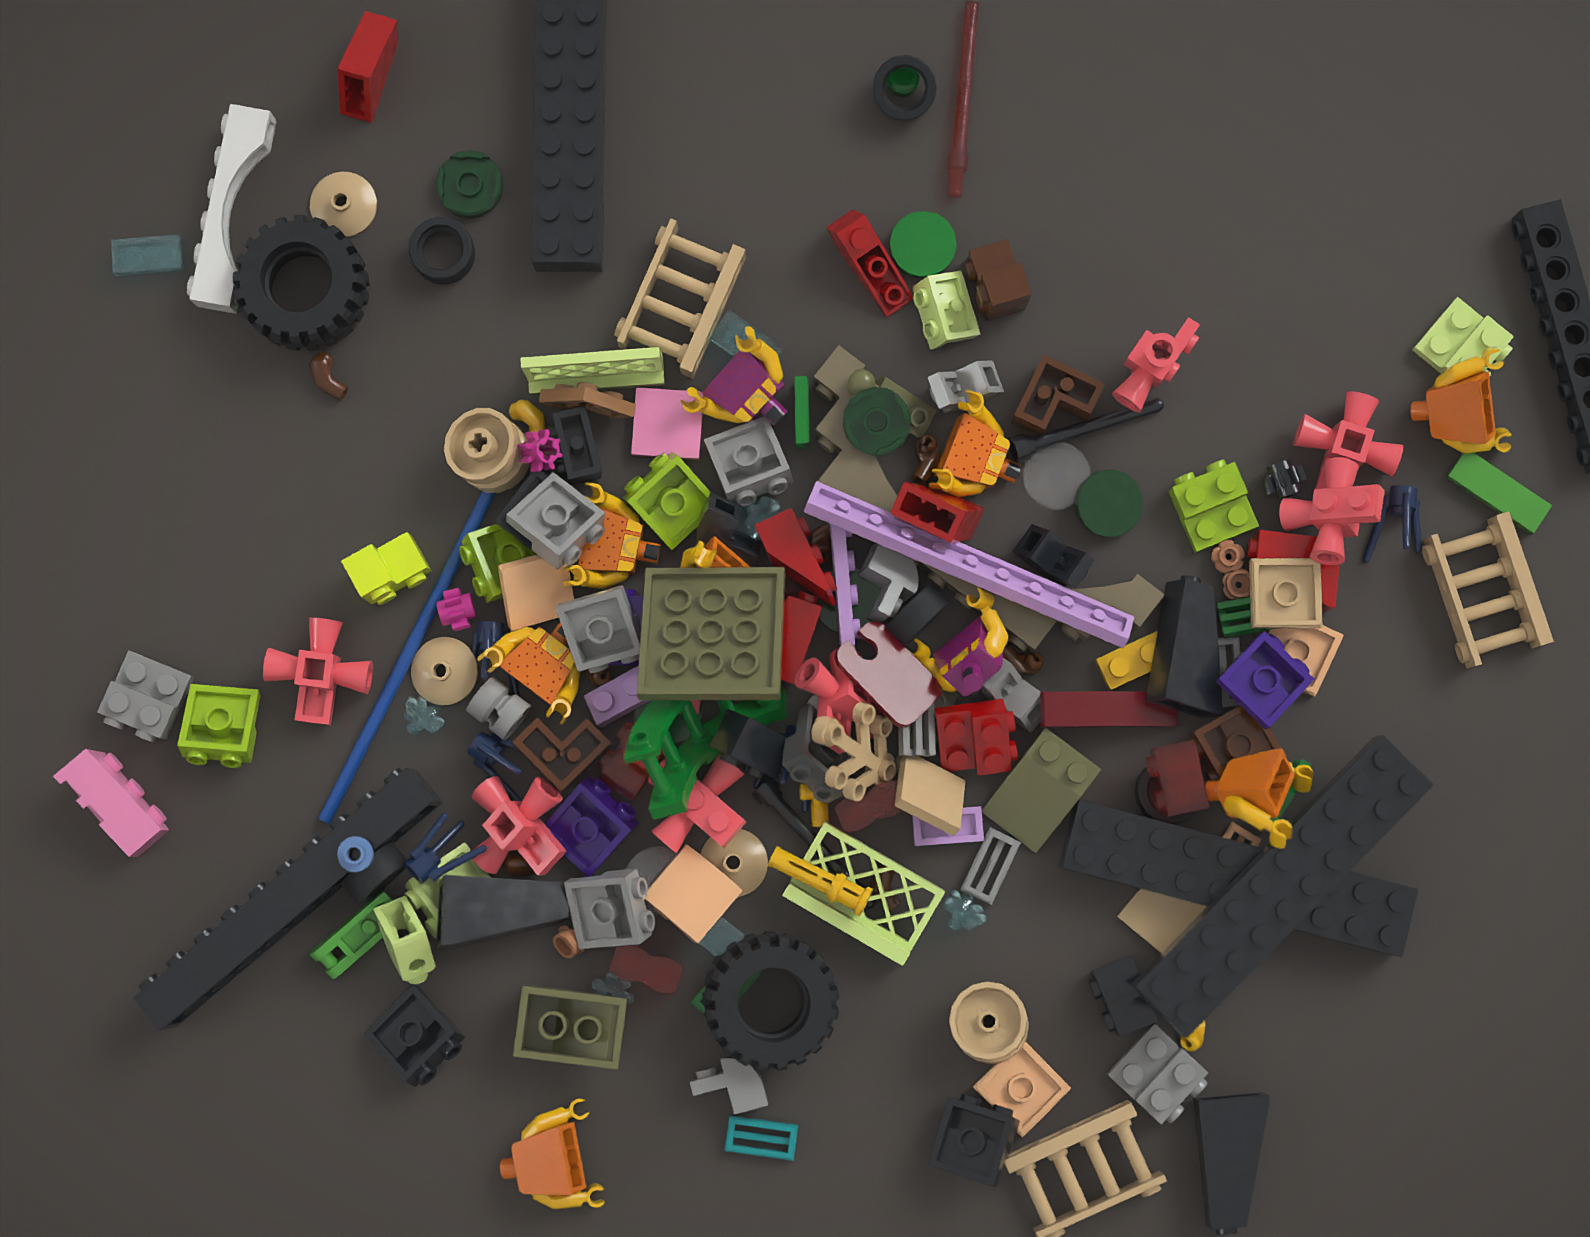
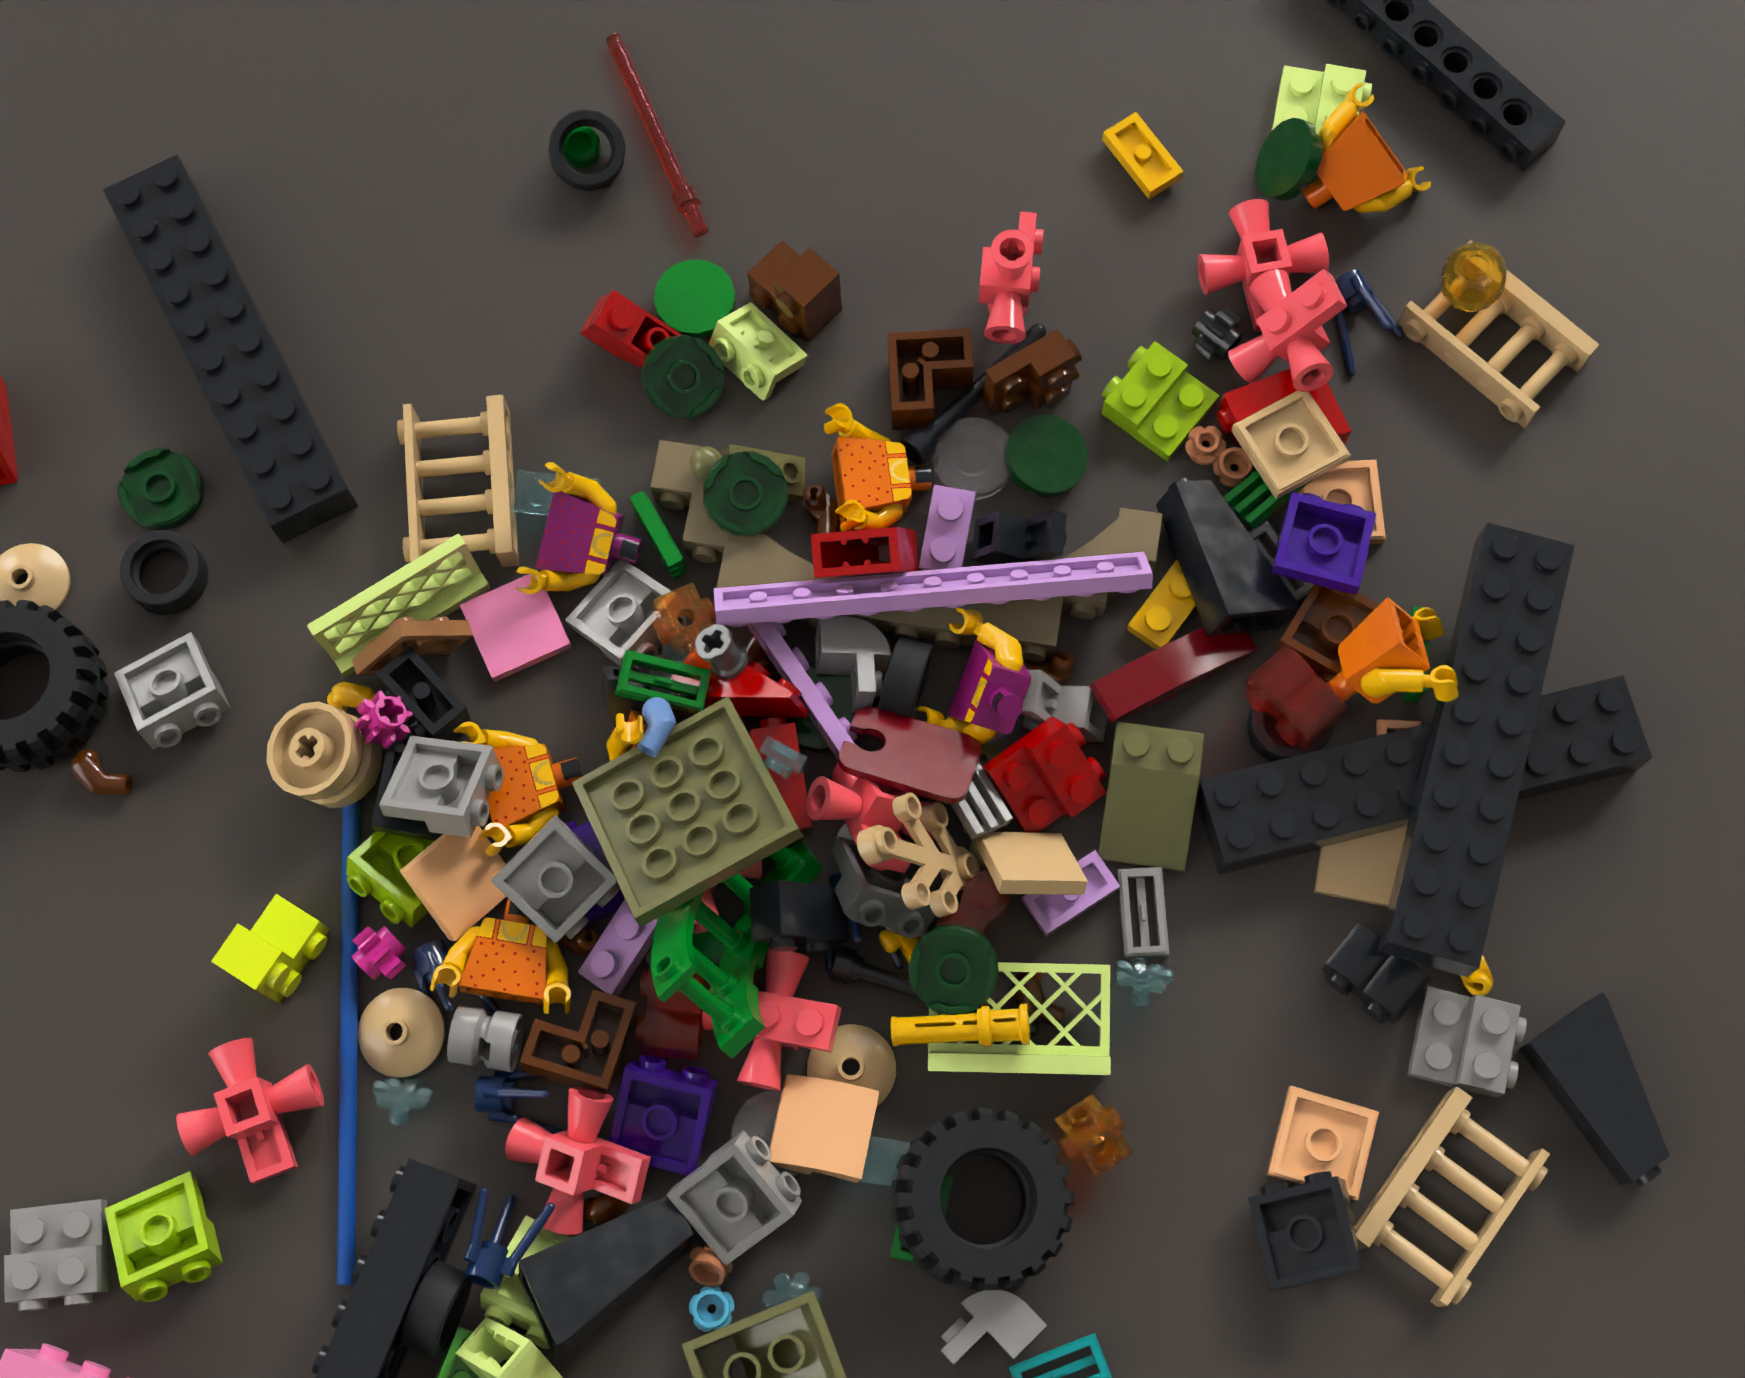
camera: 25 degrees left, 10 degrees down
(366, 854) = (412, 1295): medium blue plate -> none
(405, 343) = (172, 692): none -> light grey plate
(547, 975) = (699, 1308): none -> medium azure plate
(656, 972) = (804, 1246): clear red brick -> none
(668, 498) = (558, 703): lime plate -> none
(722, 511) = (668, 666): none -> green tile
(727, 560) = (660, 723): none -> medium blue arm
(784, 478) = (676, 604): none -> clear orange brick
(797, 530) = (717, 647): none -> dark grey bush
(797, 632) = (782, 758): none -> clear light blue plate
(836, 838) = (953, 969): none -> dark green tile
(865, 992) = (1093, 1136): none -> clear orange brick
(871, 303) = (682, 376): none -> dark green tile
(950, 387) = (806, 421): light grey brick -> none
(994, 1043) = (1243, 1058): tan wheel -> none
(1007, 520) = (947, 528): none -> lavender plate
(1139, 441) = (1037, 372): none -> reddish brown plate
(1310, 311) = (1142, 155): none -> yellow plate
(1413, 375) = (1288, 159): none -> dark green tile
(1491, 543) = (1473, 276): none -> clear yellow hair
(1499, 491) = (1441, 230): bright green tile -> none

